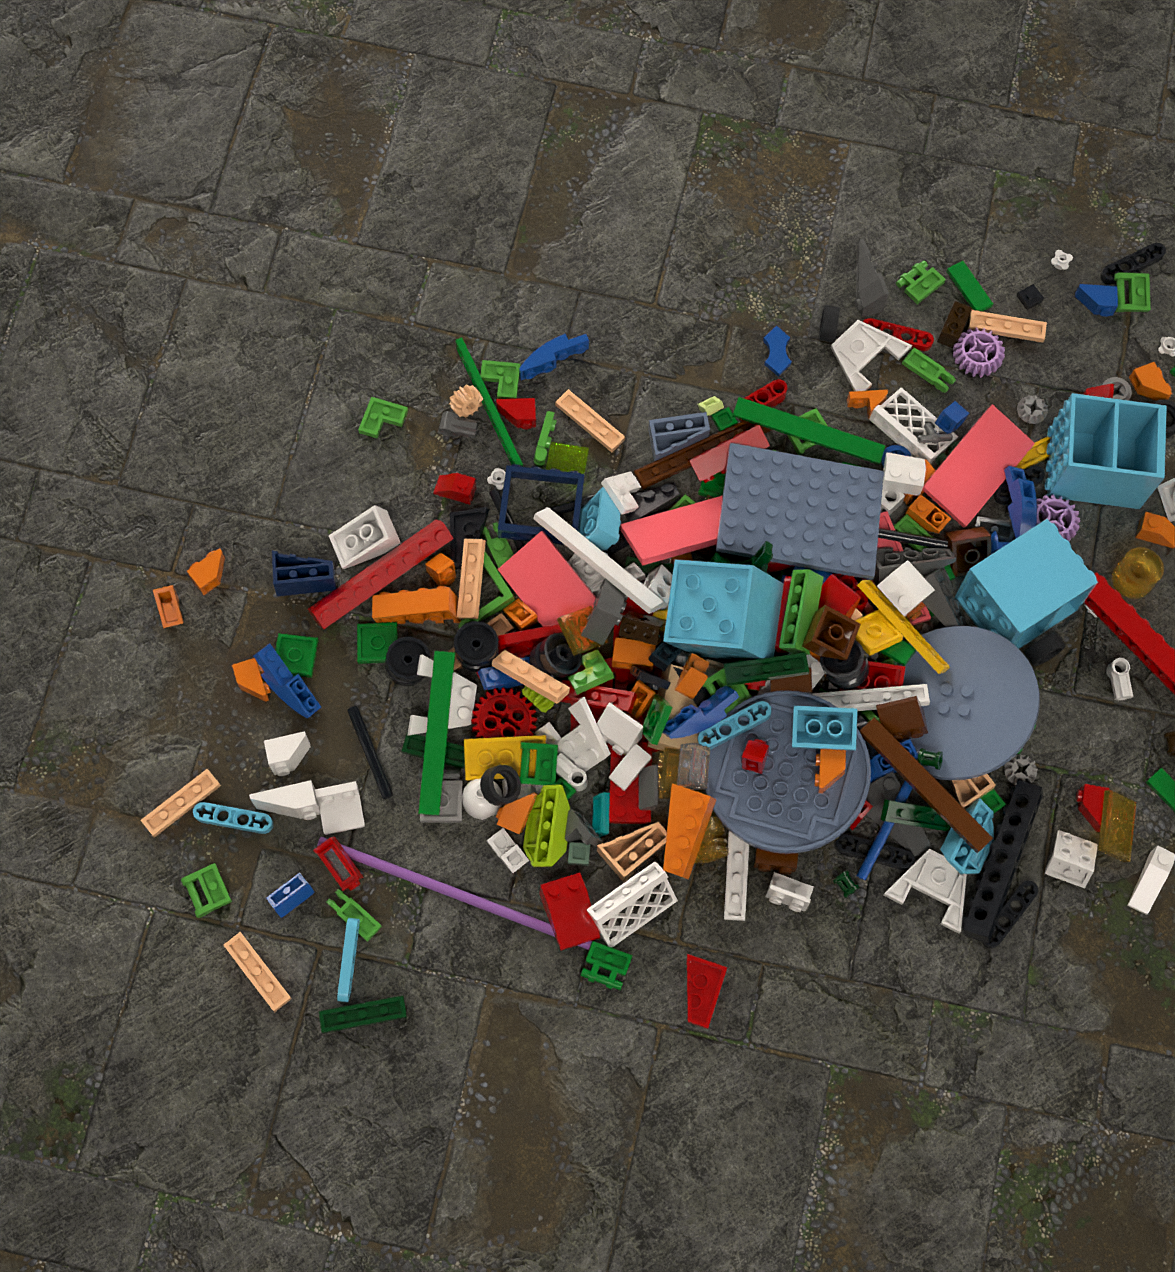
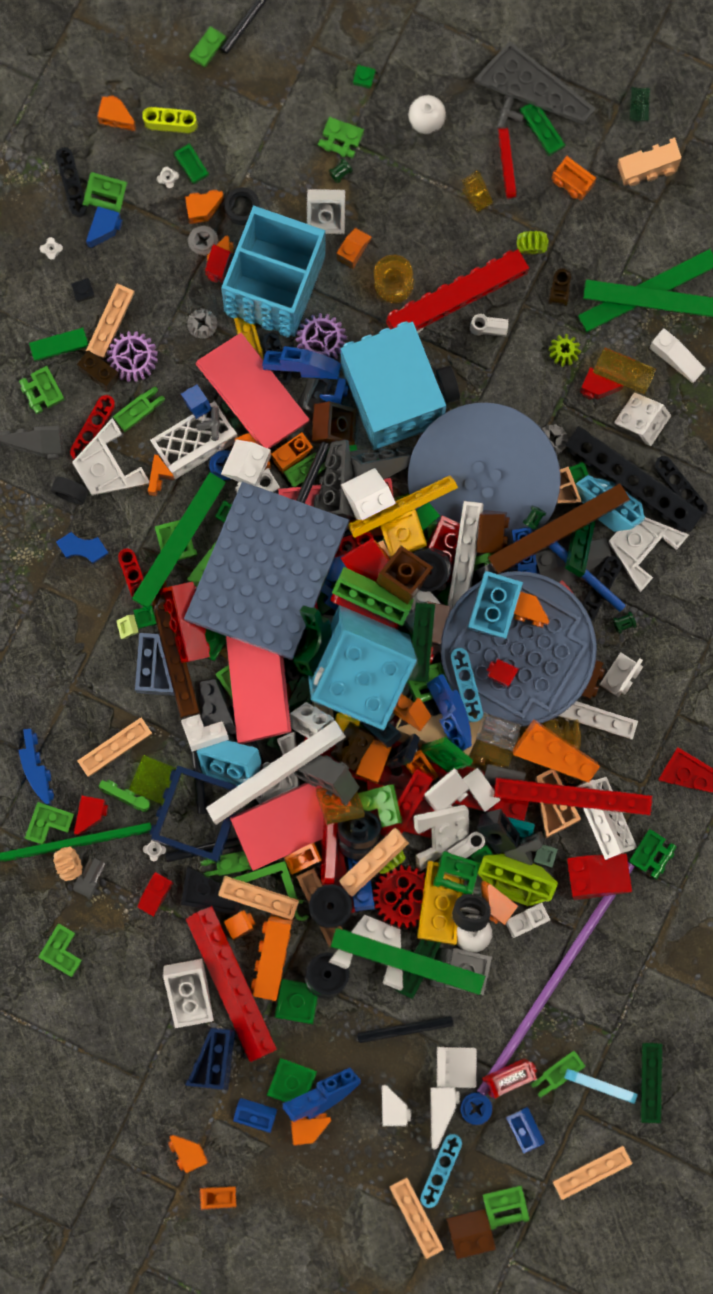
camera: 75 degrees left, 10 degrees up
(172, 859) = (471, 1234): none -> reddish brown slope
(257, 627) = (255, 1115): none -> blue slope
(301, 830) = (466, 1107): none -> blue gear
(592, 796) = (498, 831): none -> black brick
(644, 860) = (573, 796): none -> red tile
(1126, 759) = (567, 356): none -> lime gear

